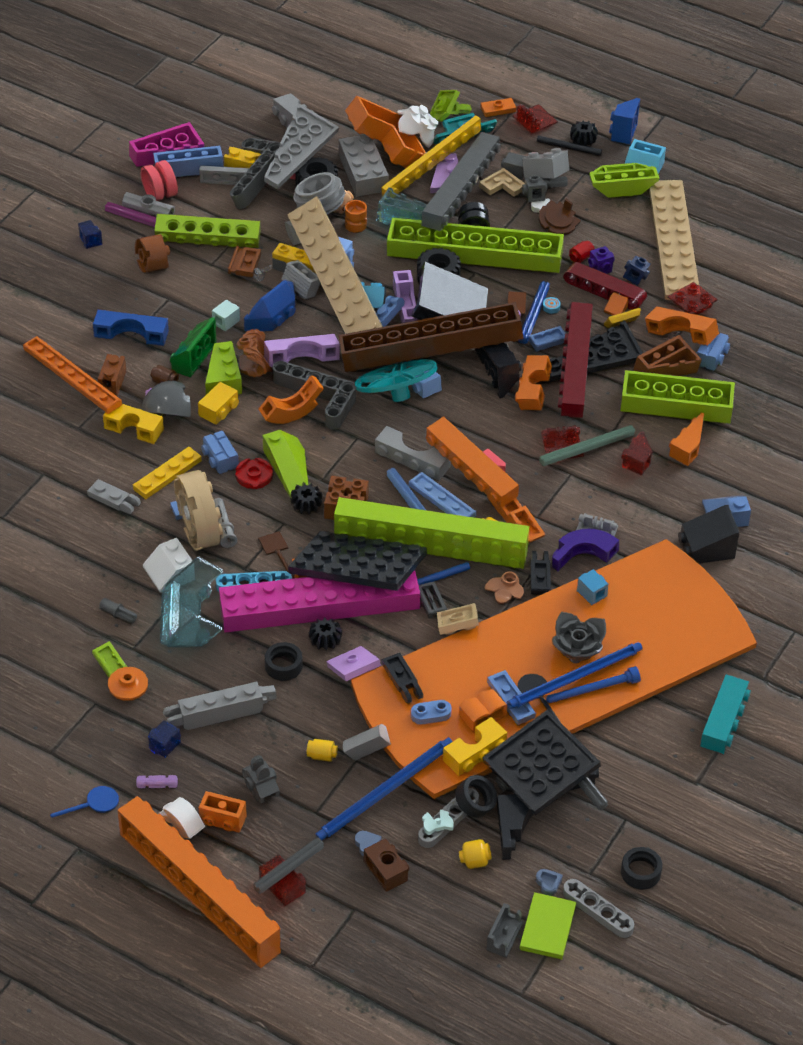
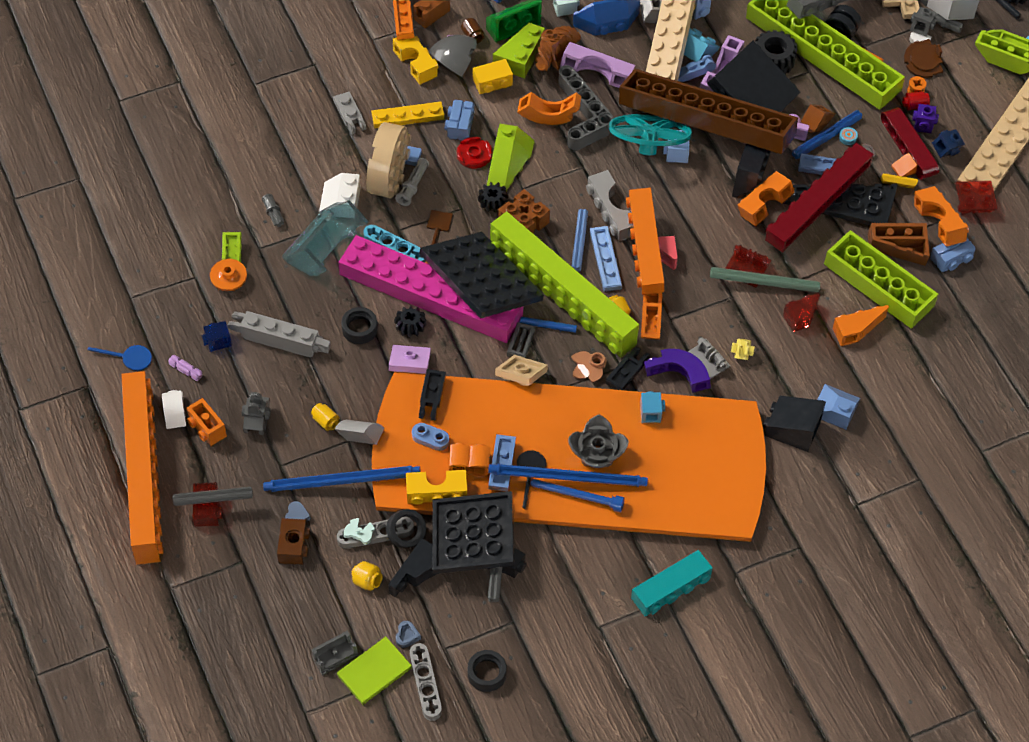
camera: 35 degrees right, 10 degrees up
(571, 239) = (916, 84): none -> orange wheel
(618, 506) = (742, 349): none -> light yellow gear

